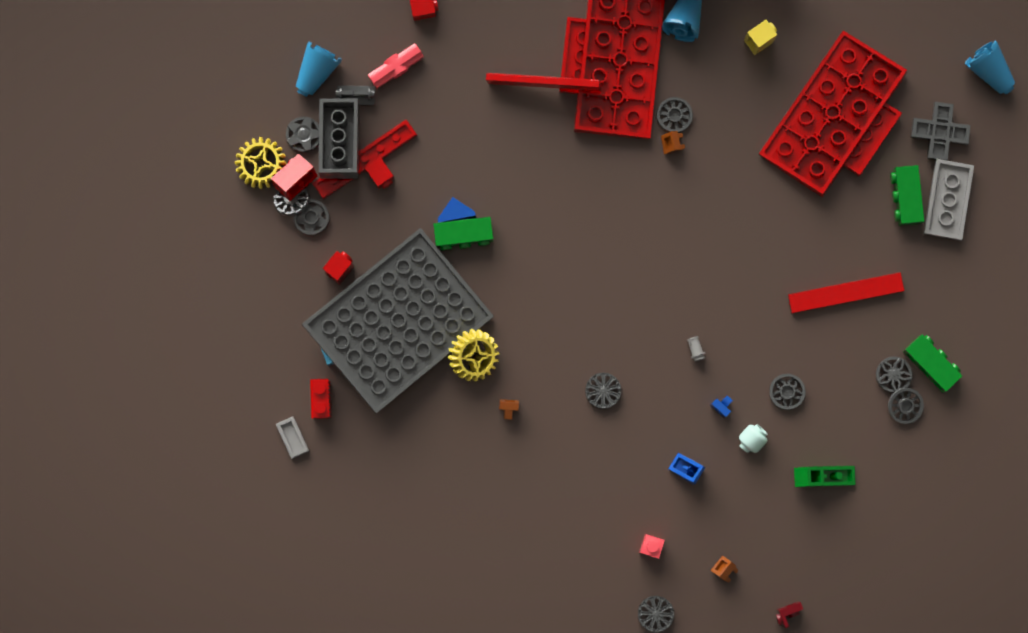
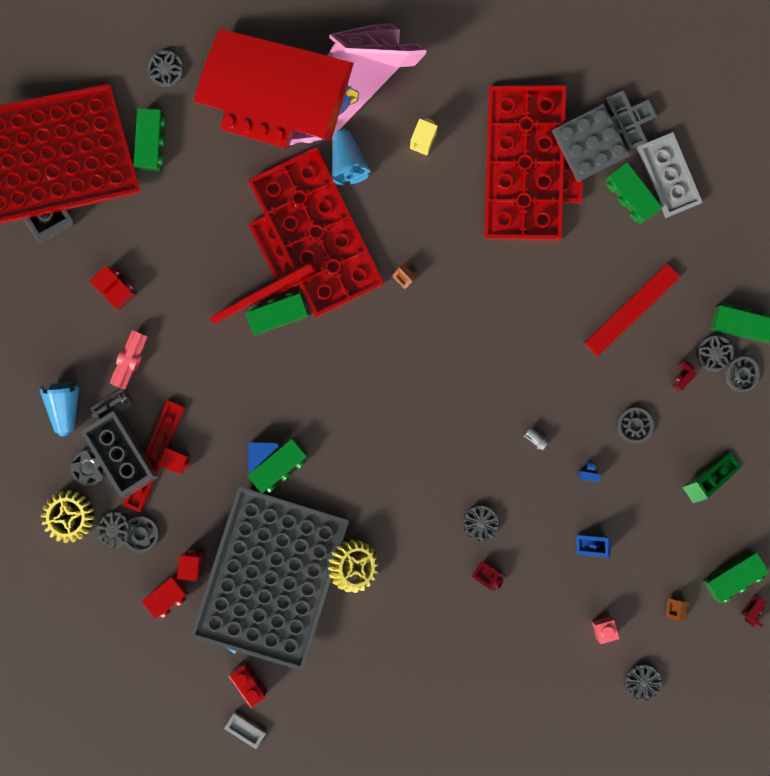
camera: 30 degrees left, 5 degrees up
(294, 177) = (103, 511): brick -> none
(299, 281) = (164, 597): none -> red brick
(509, 406) = (410, 589): dark orange tile -> none
(544, 106) = (276, 313): none -> green brick
(581, 439) = (488, 576): none -> dark red bracket
(674, 114) = (392, 250): dark grey wheel -> none
(753, 438) = (632, 484): light aqua head -> none
(792, 573) = (736, 577): none -> green brick
(851, 377) = (683, 380): none -> dark red bracket
(897, 130) = (590, 143): none -> dark grey plate
(992, 67) = (636, 37): dark azure cone -> none

